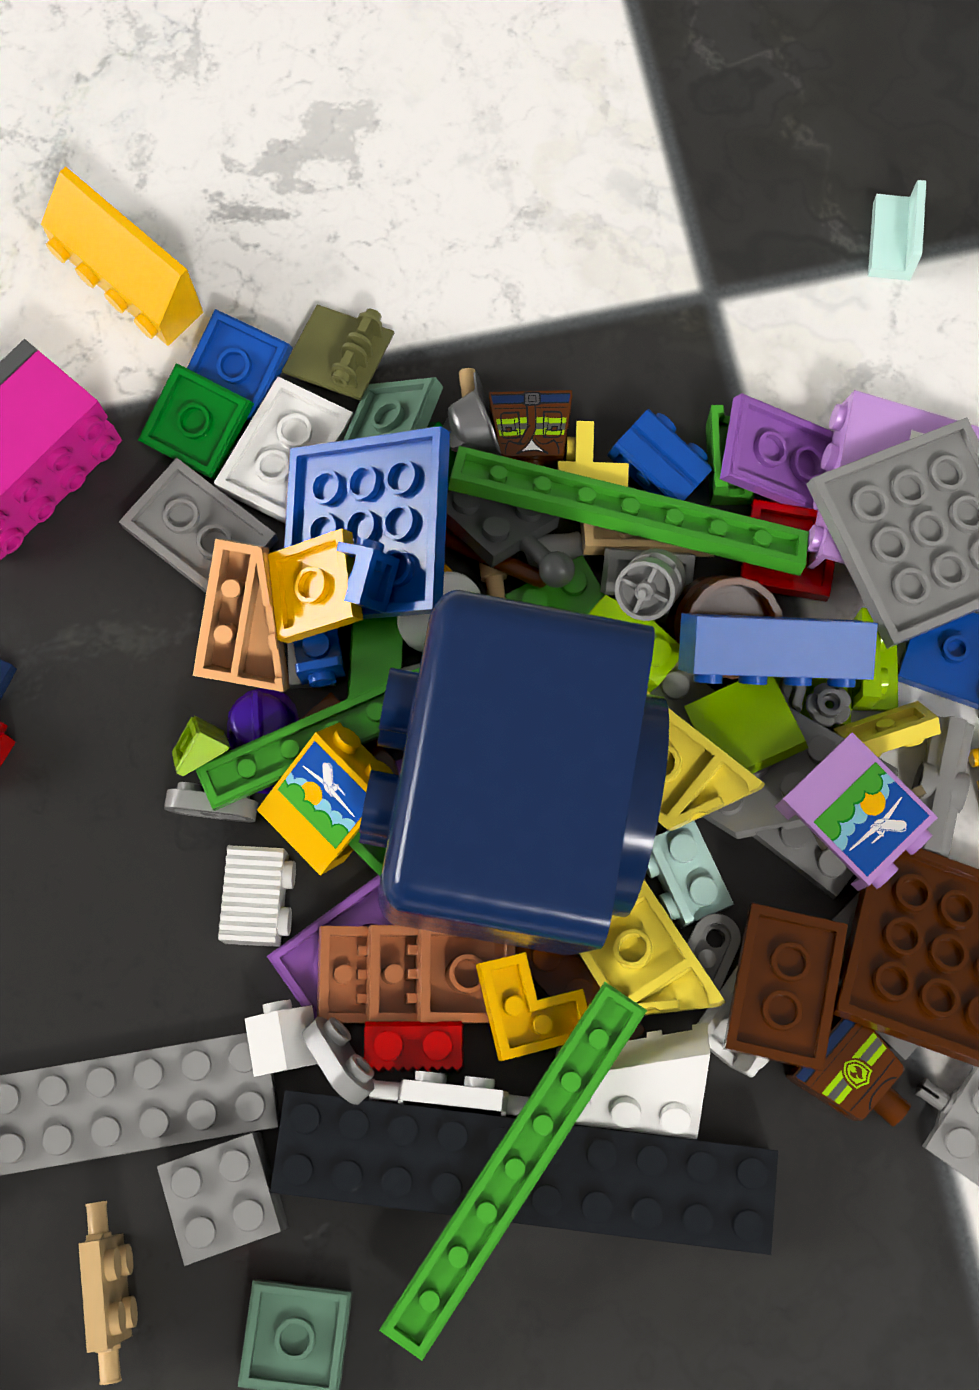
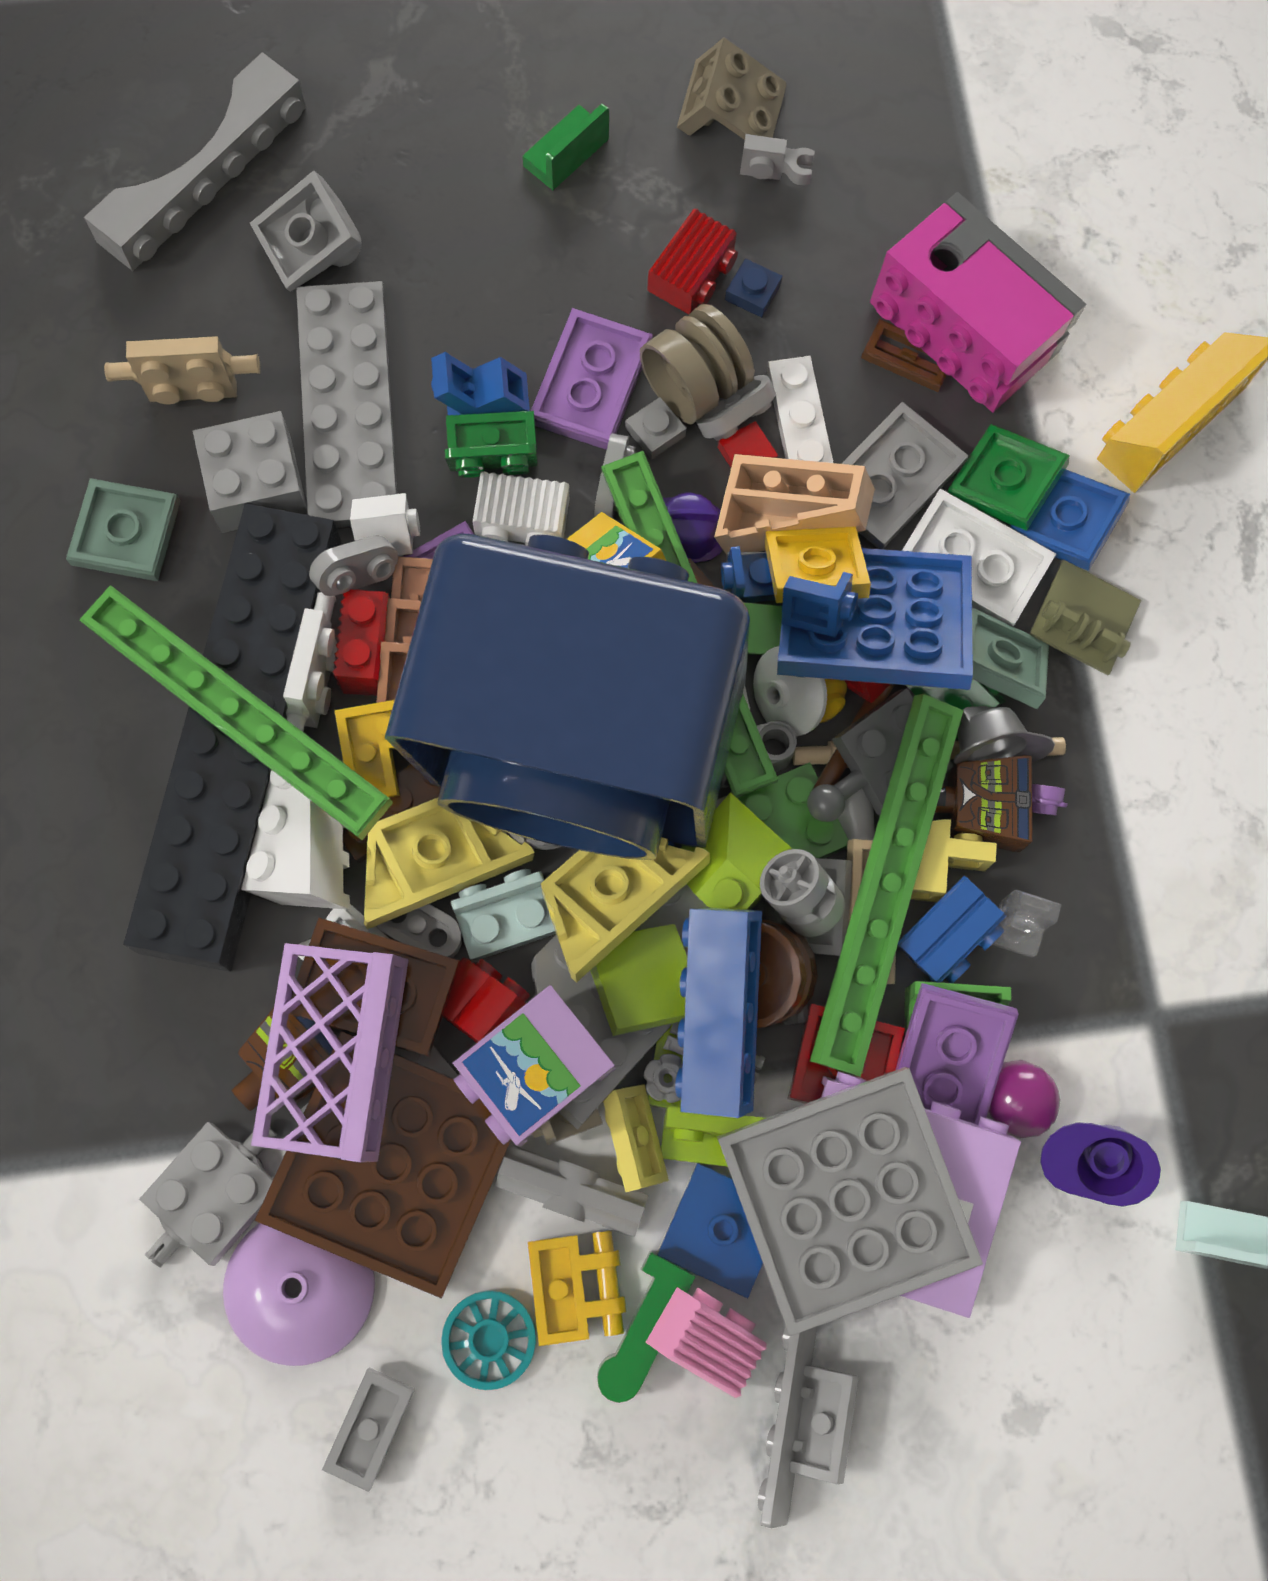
camera: 85 degrees right, 0 degrees up
(71, 534) = (896, 365): none -> reddish brown tile
(86, 722) = (697, 363): none -> dark tan wheel
(94, 839) = (590, 379): none -> medium lavender tile
(119, 950) = (480, 390): none -> blue brick
(127, 685) = (730, 412): none -> light grey plate
(135, 623) = (799, 410): none -> white plate
(149, 767) = (655, 428): none -> light grey plate
(173, 673) = (746, 441): none -> red tile
(182, 932) = (491, 442): none -> green bracket
(198, 745) = (667, 462): lime slope -> none
(522, 379) = (1047, 799): none -> medium lavender plate
(643, 395) = (1025, 922): none -> clear bracket
(789, 877) = (480, 1000): none -> red brick
(803, 394) = (1025, 1099): none -> magenta hair
(854, 330) = (1101, 1164): none -> dark purple piece
(862, 974) = (371, 1060): none -> lavender fence

